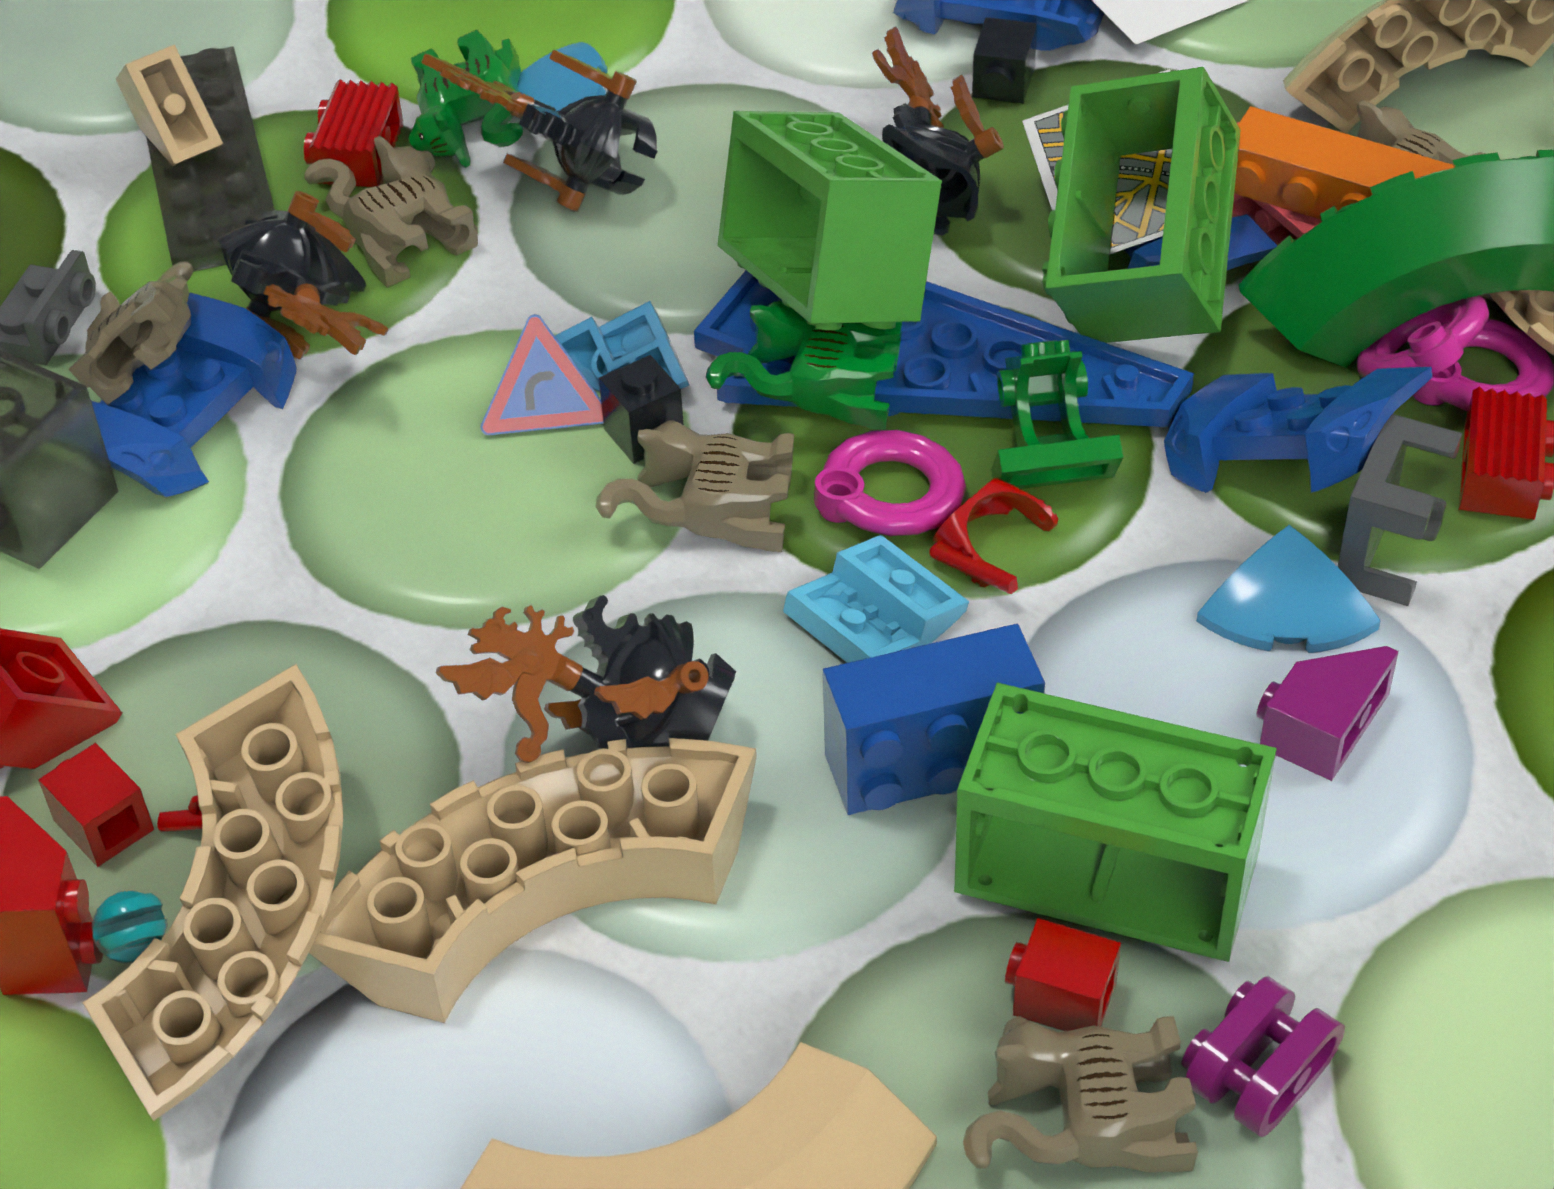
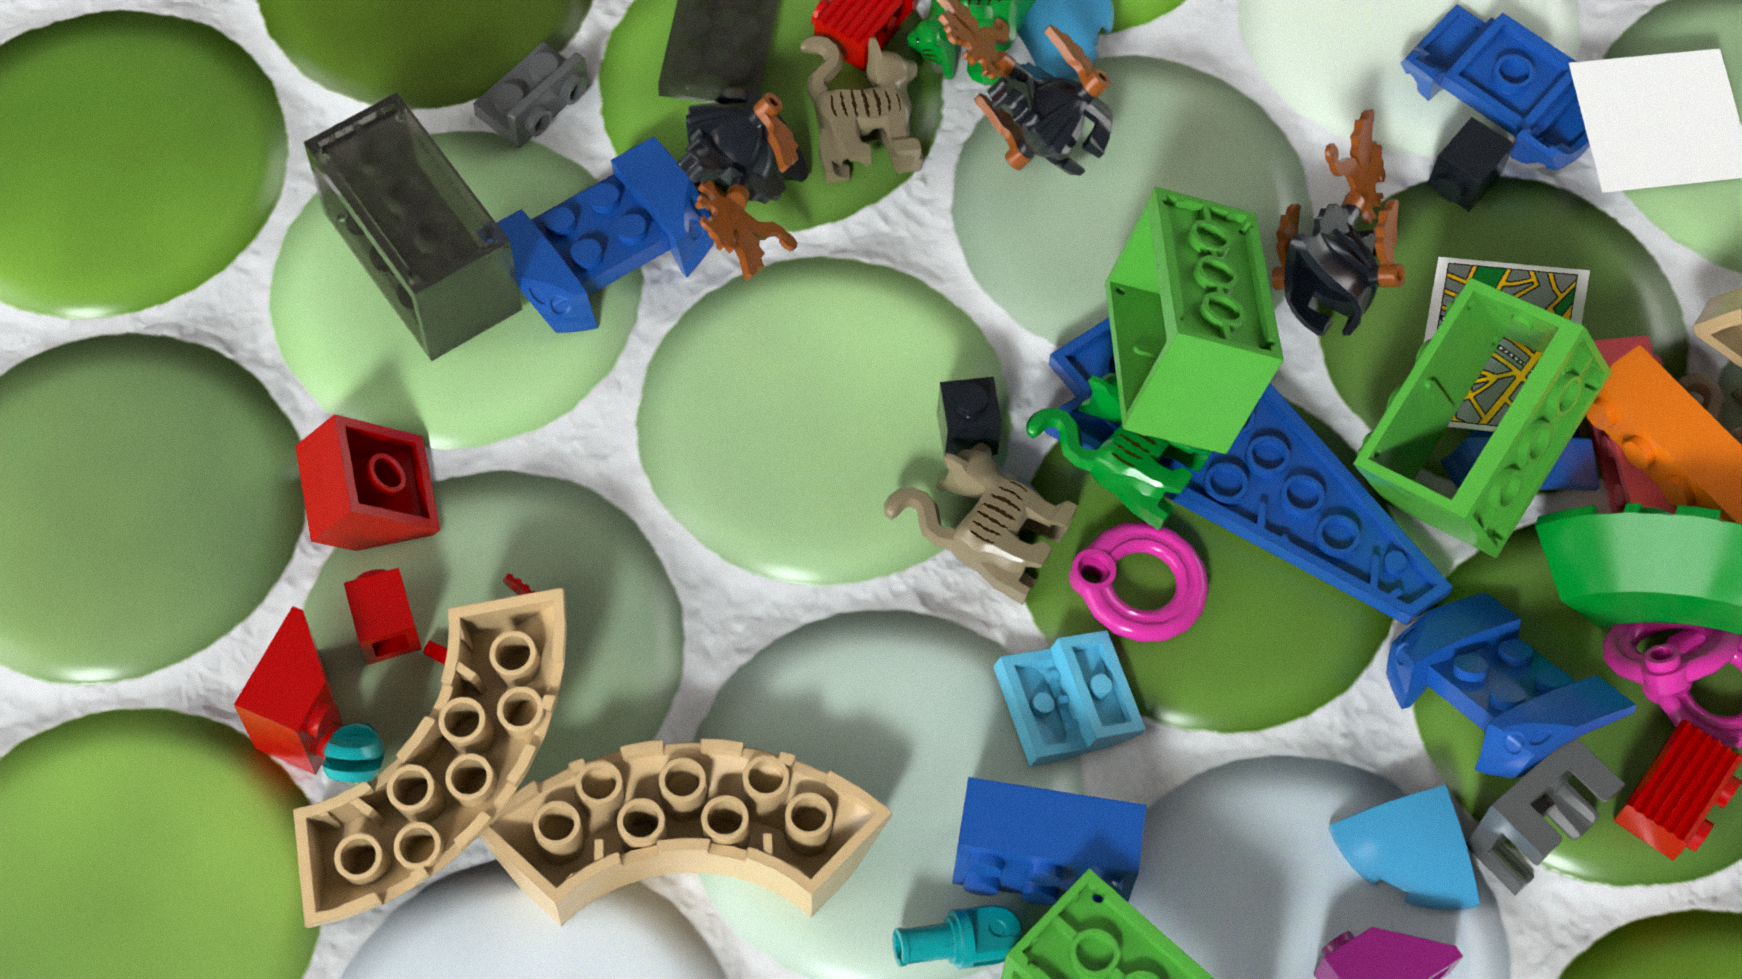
camera: 20 degrees right, 15 degrees up
(135, 333) = (589, 168): dark tan animal -> none
(541, 387) = (896, 358): piece -> none
(621, 342) = (983, 345): dark azure brick -> none
(640, 692) = (823, 721): helmet -> none
(888, 848) = (965, 938): none -> teal arm
(952, 539) = (1159, 668): red helmet -> none
(1047, 376) = (1311, 541): green tile -> none

